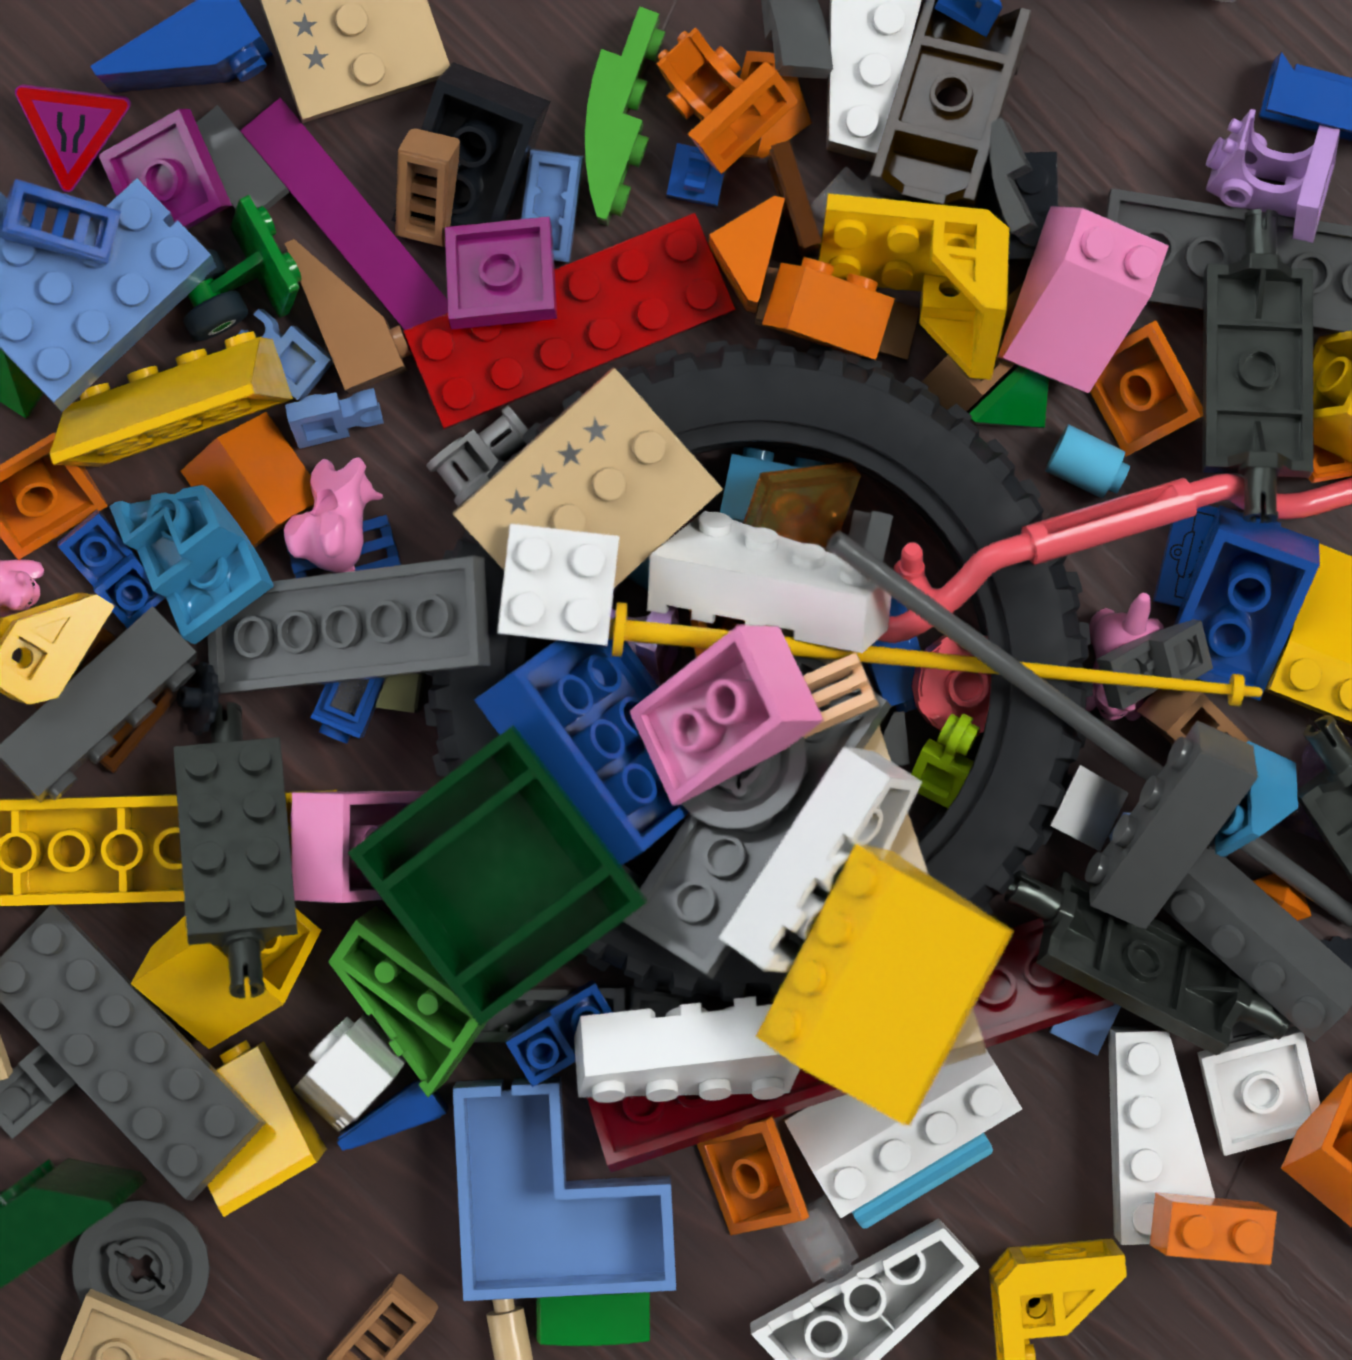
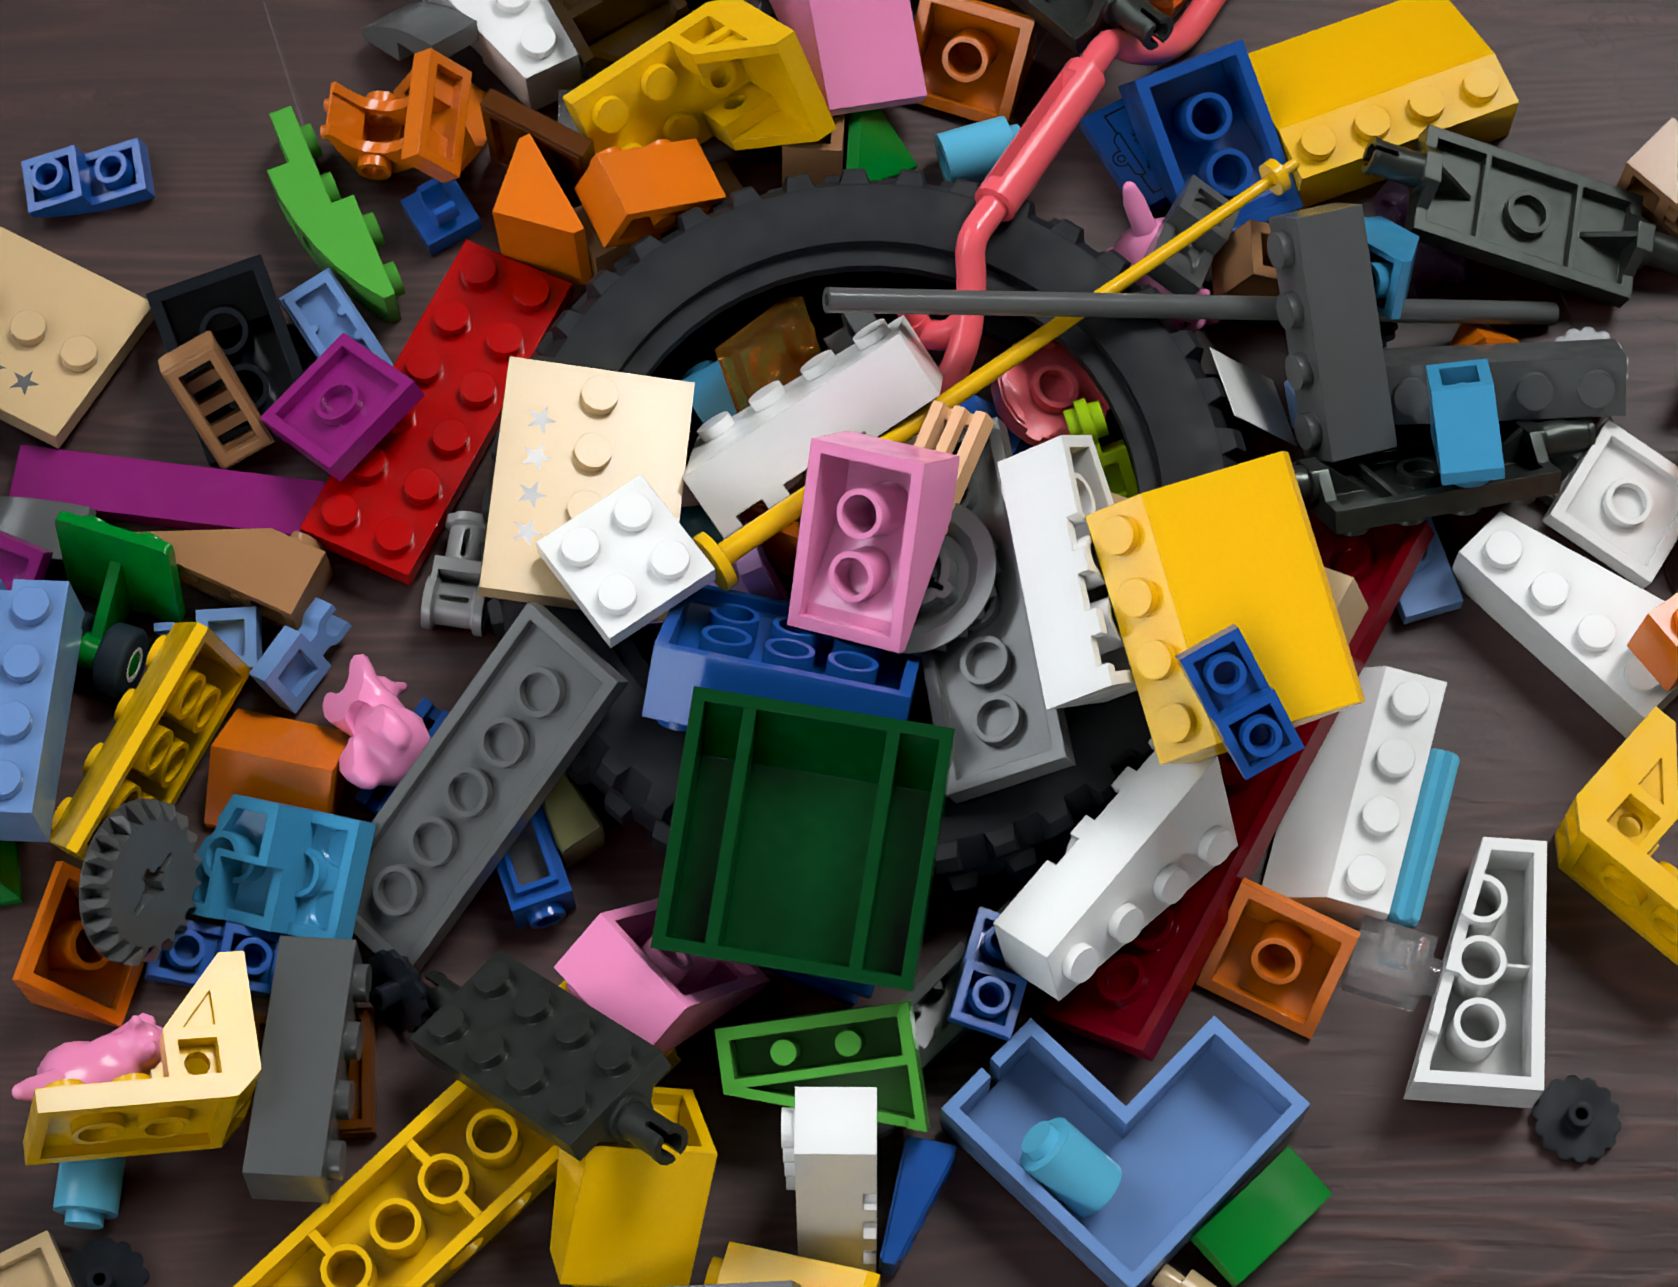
camera: 45 degrees left, 20 degrees down
(91, 498) = (113, 909): none -> dark grey gear
(499, 1191) = (1070, 1166): none -> medium azure brick
(828, 1058) = (1239, 702): none -> blue slope
(1192, 966) = (1464, 423): none -> dark azure slope

